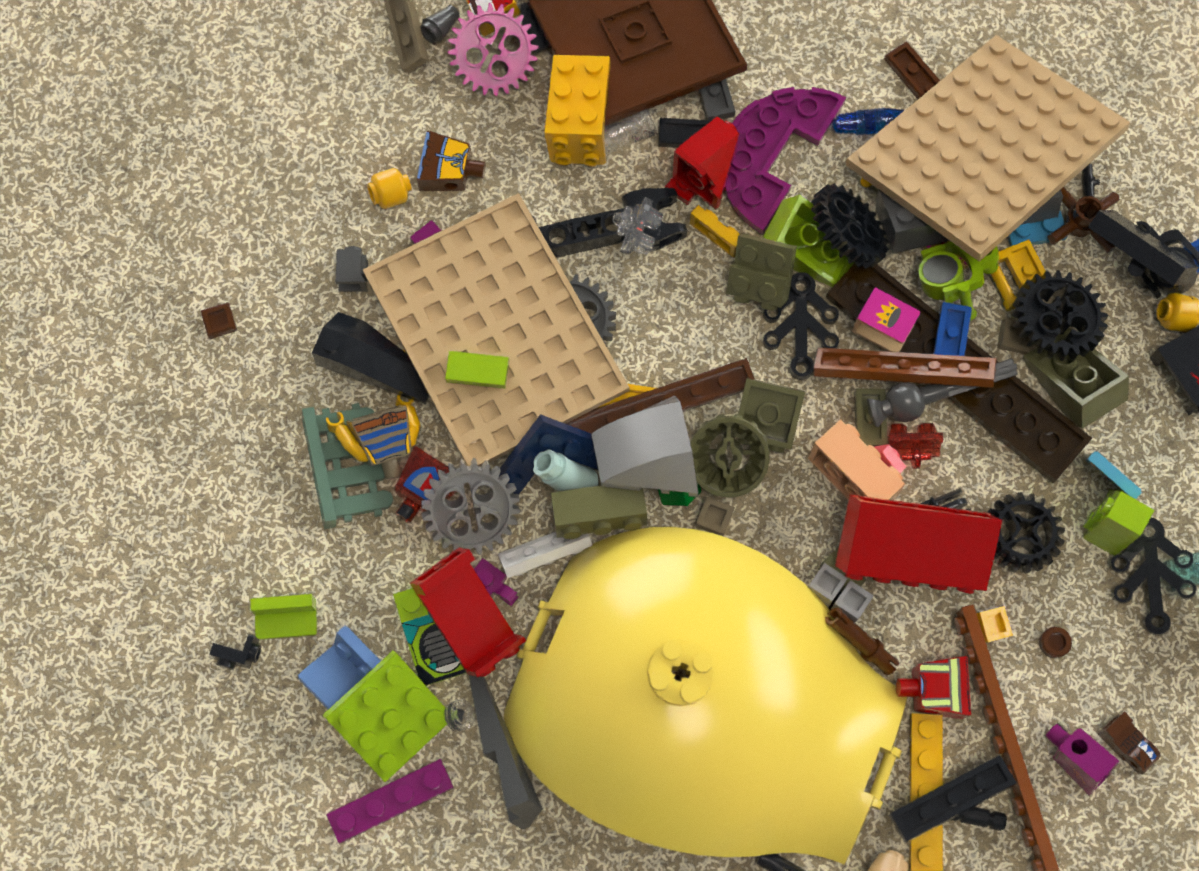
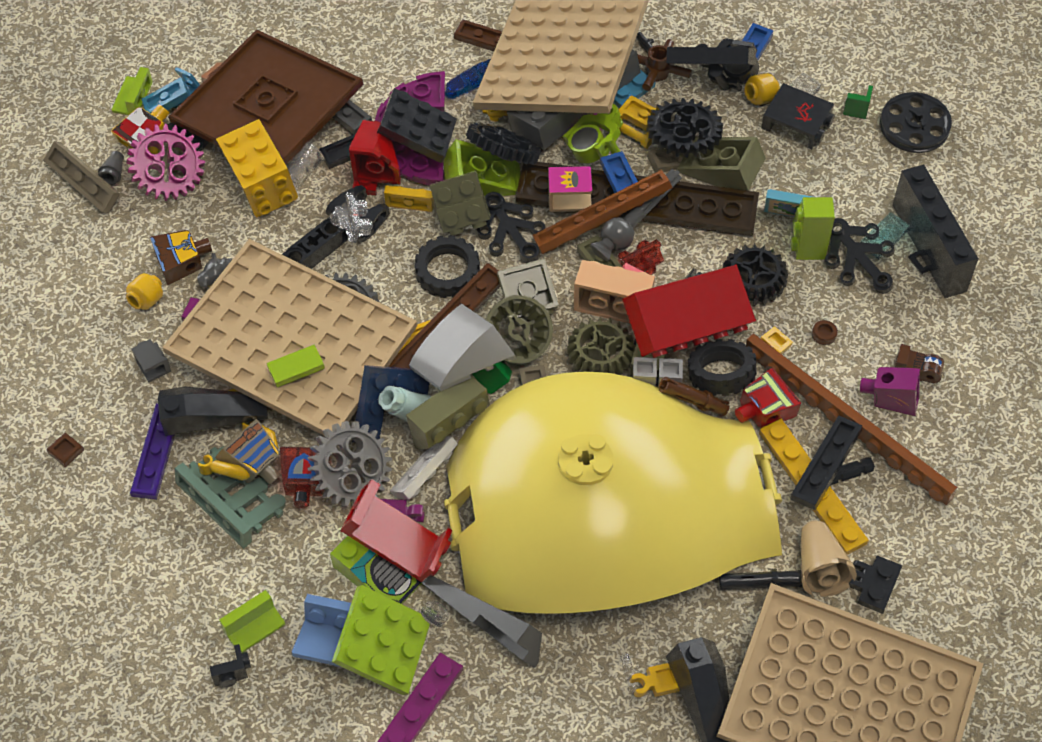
camera: 30 degrees left, 15 degrees down
(289, 386) = (152, 460): none -> dark purple tile
(470, 203) = (212, 270): none -> dark grey animal
(717, 307) = (441, 246): none -> black tyre
(772, 152) = (417, 125): none -> black plate
(792, 521) = (608, 338): none -> olive gear
(907, 647) = (722, 351): none -> black tyre

